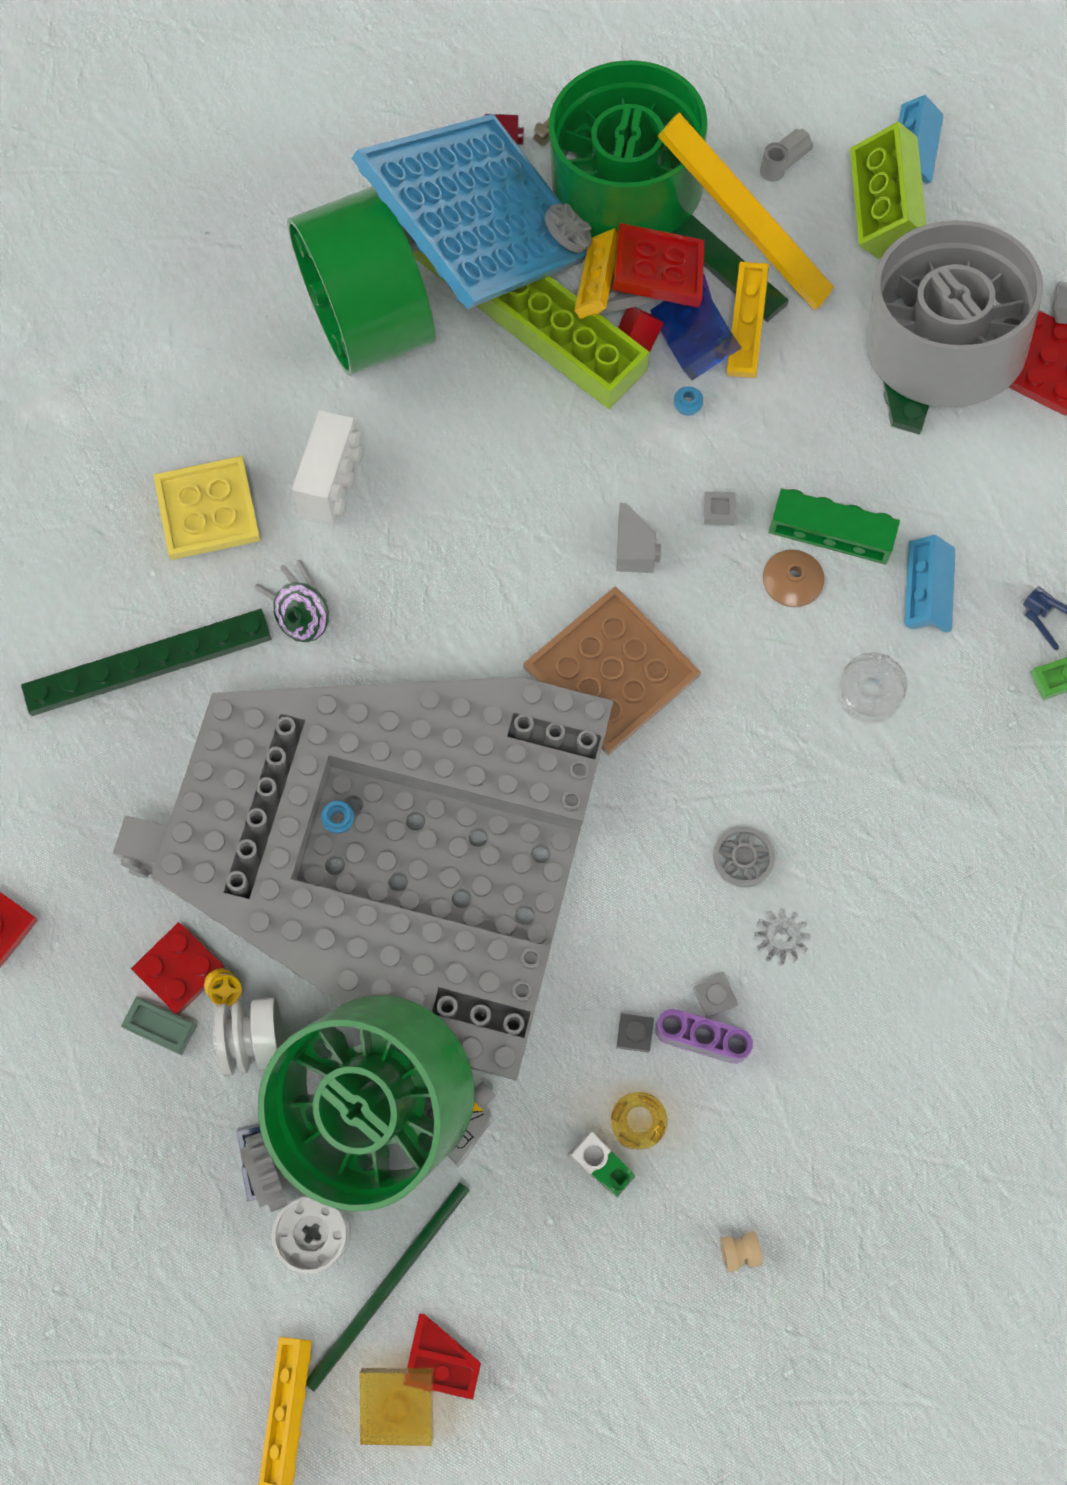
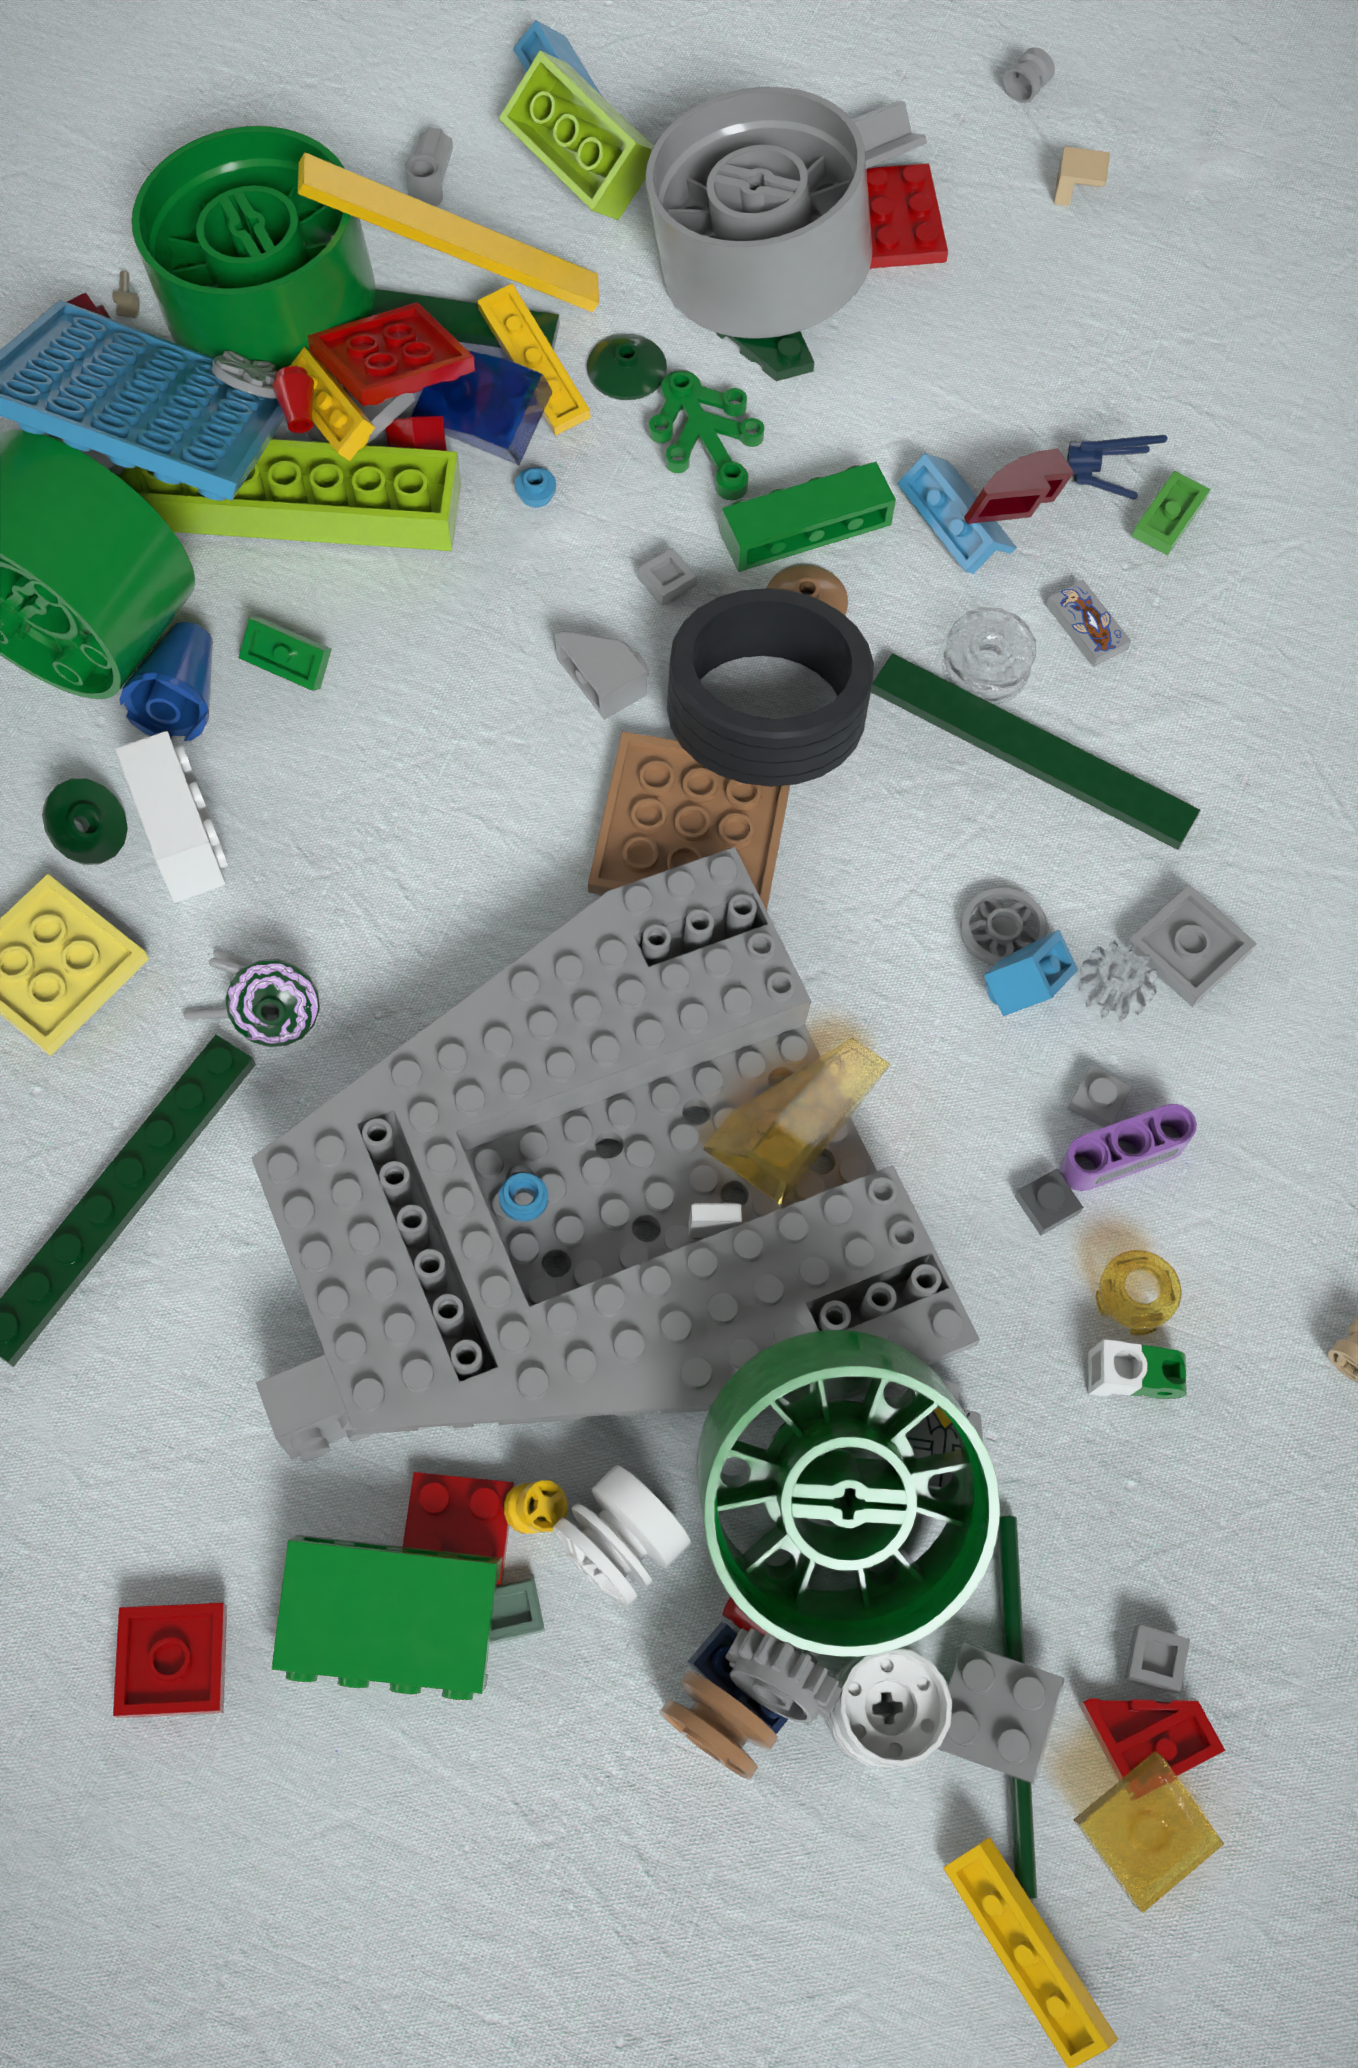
camera: 40 degrees left, 5 degrees down
(104, 984) = (386, 1616): none -> green panel
(219, 1172) = (719, 1724): none -> medium nougat wheel
(296, 436) = (97, 812): none -> dark green dish
(370, 1282) = (1000, 1712): none -> light grey plate
(389, 388) = (172, 685): none -> blue cone
(430, 904) = (713, 1218): none -> white tile
(464, 410) = (284, 653): none -> green plate
(479, 1323) = (1157, 1658): none -> light grey plate
(522, 881) = (791, 1124): none -> clear yellow wedge
(580, 258) = (295, 396): none -> red cone
(732, 896) = (1030, 974): none -> dark azure slope
(739, 572) = (776, 626): none -> black tyre
(803, 368) = (626, 367): none -> dark green dish
(818, 426) = (684, 392): none -> green plant
(845, 947) = (1191, 945): none -> light grey plate
(853, 766) = (1035, 751): none -> dark green tile
(954, 708) = (1088, 623): none -> tile
(977, 595) = (1021, 487): none -> dark red slope

